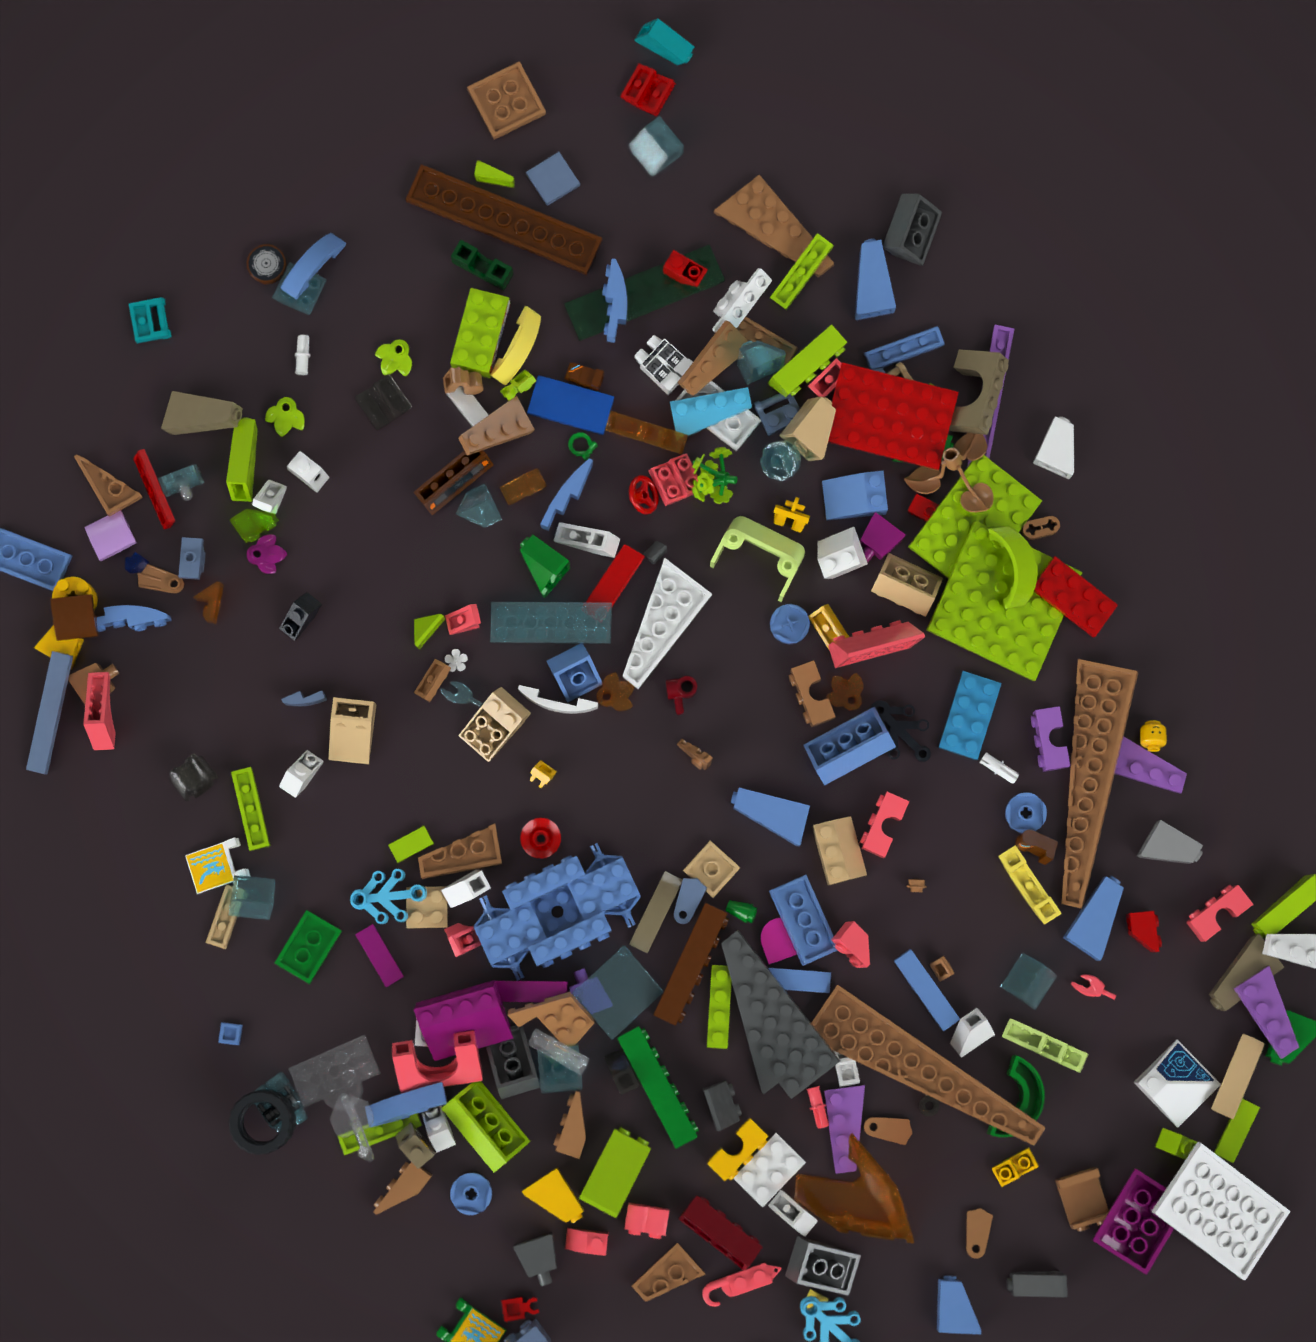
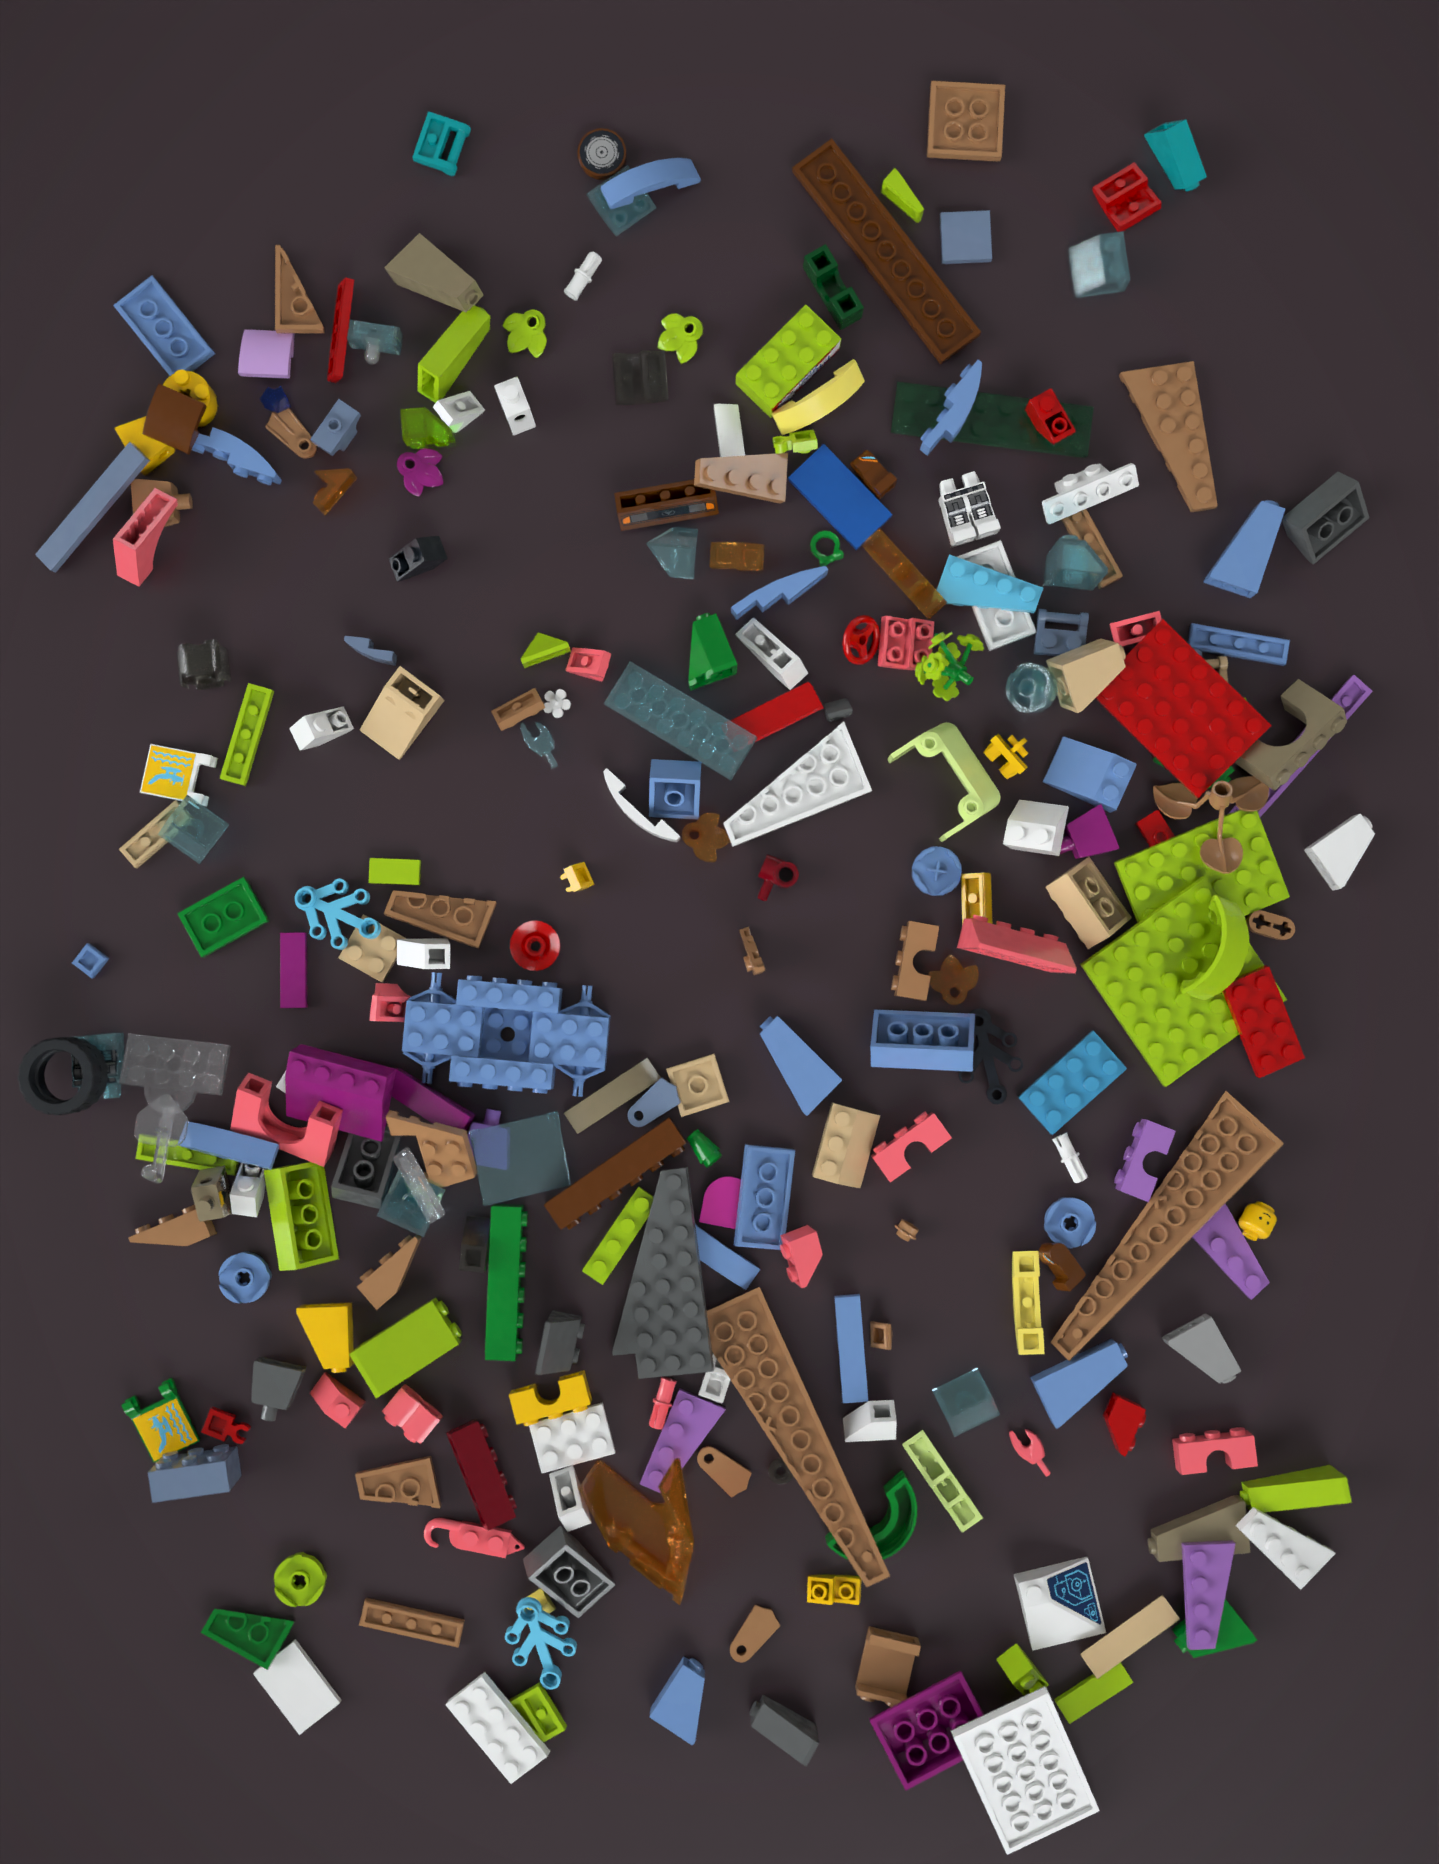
camera: 30 degrees right, 5 degrees up
(457, 377) = (745, 408): medium nougat leg -> none
(494, 723) = (557, 794): tan slope -> none
(713, 359) = (1023, 535): medium nougat wing -> none
(801, 271) = (1177, 494): lime plate -> none
(808, 361) = (1124, 597): lime slope -> none

